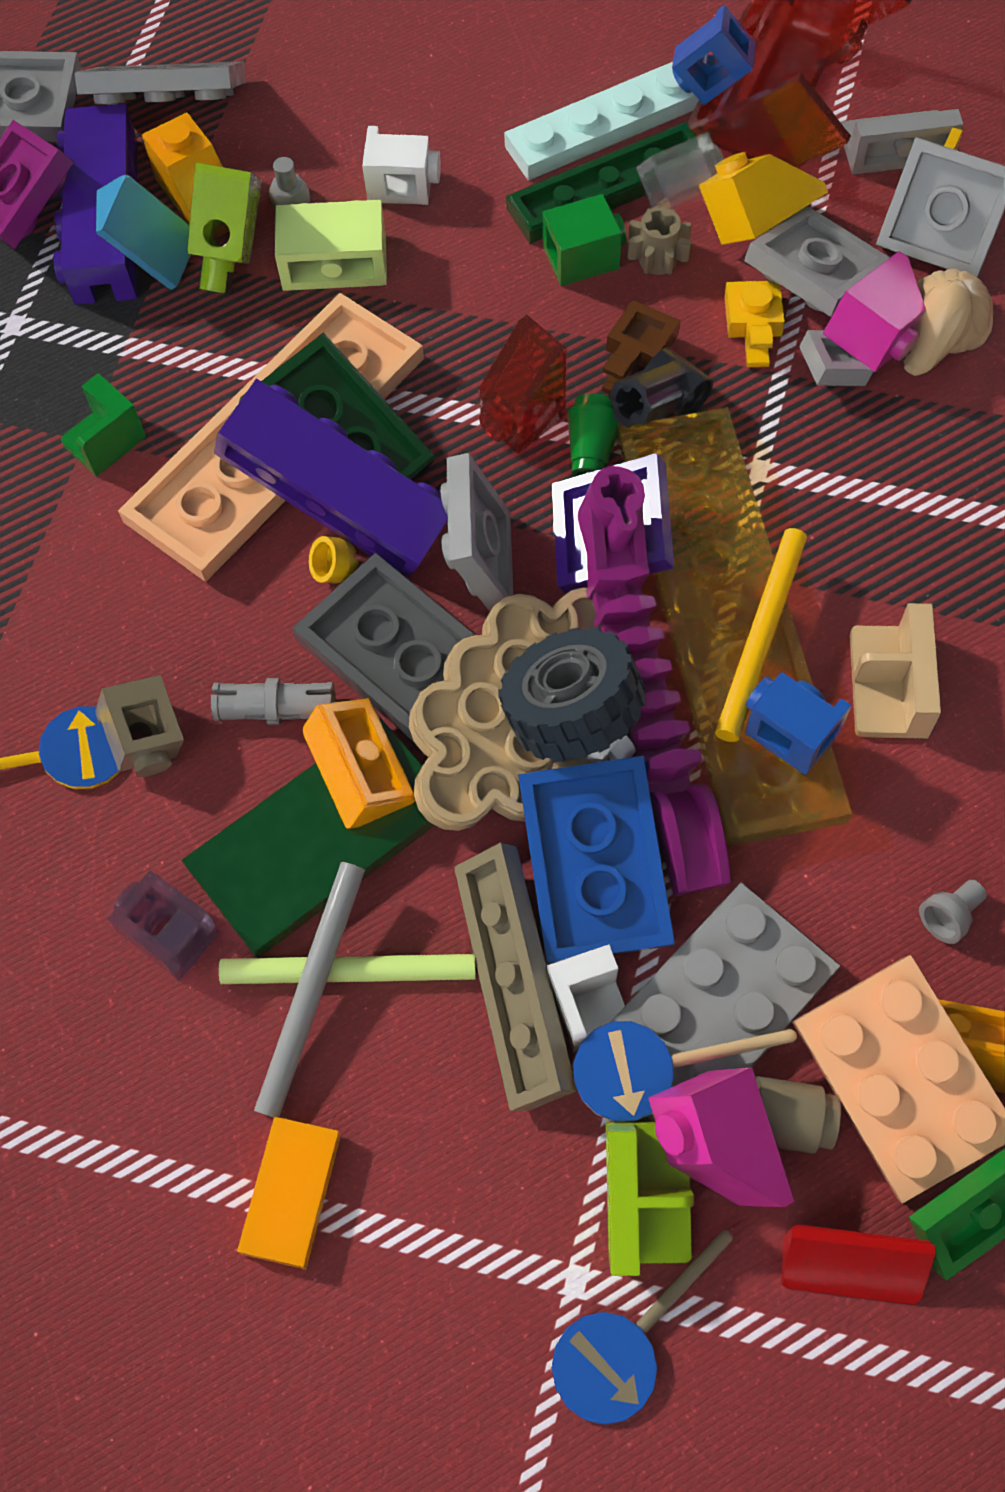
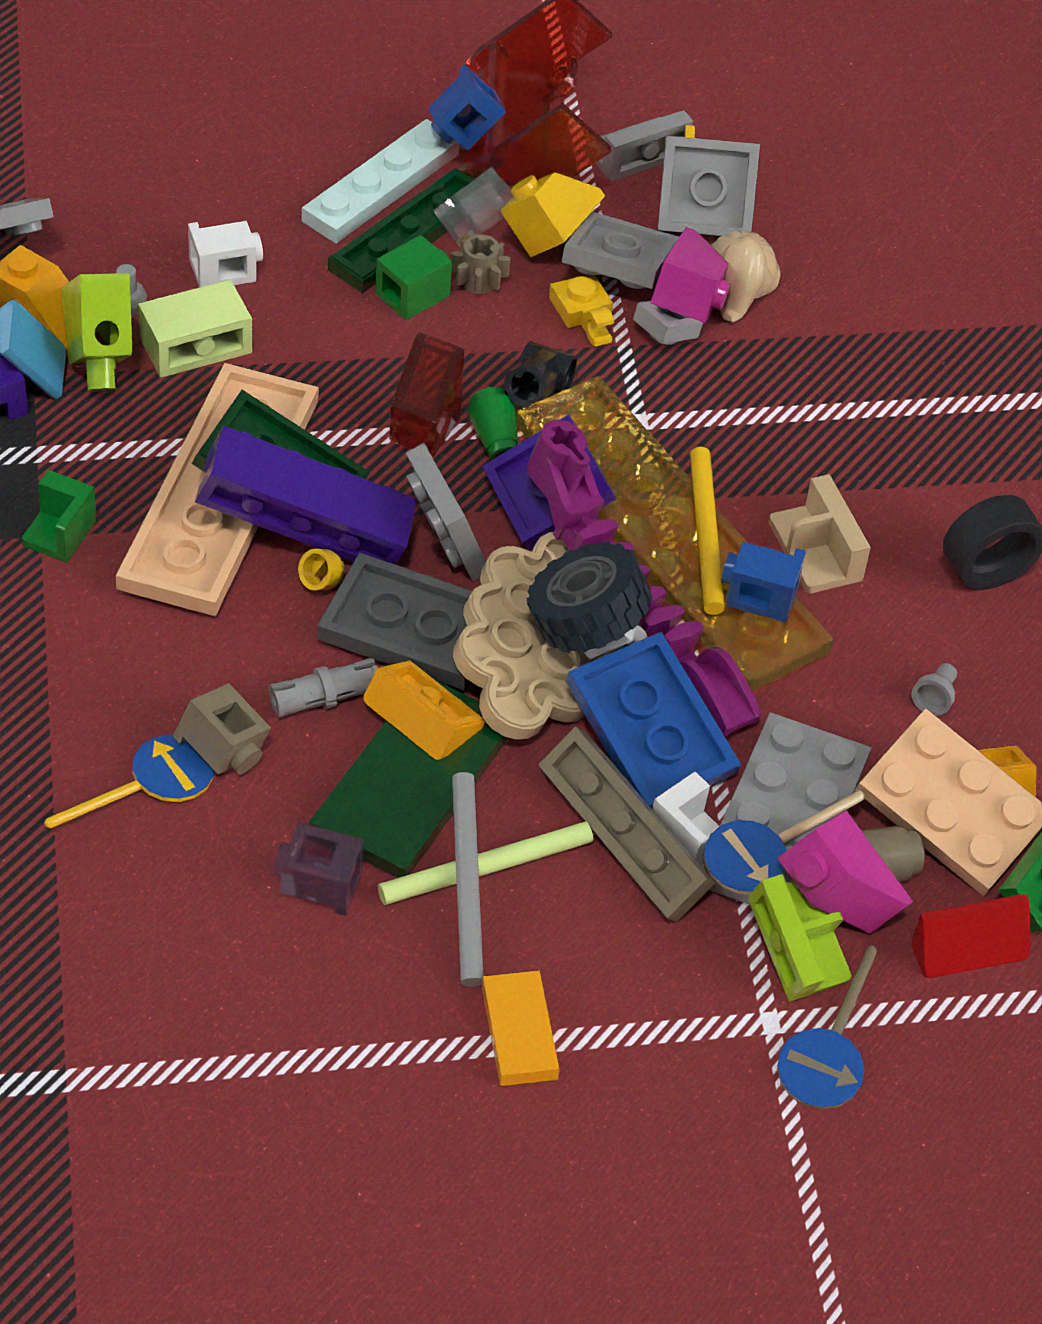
camera: 30 degrees left, 15 degrees down
(636, 340) = (499, 343): reddish brown plate -> none

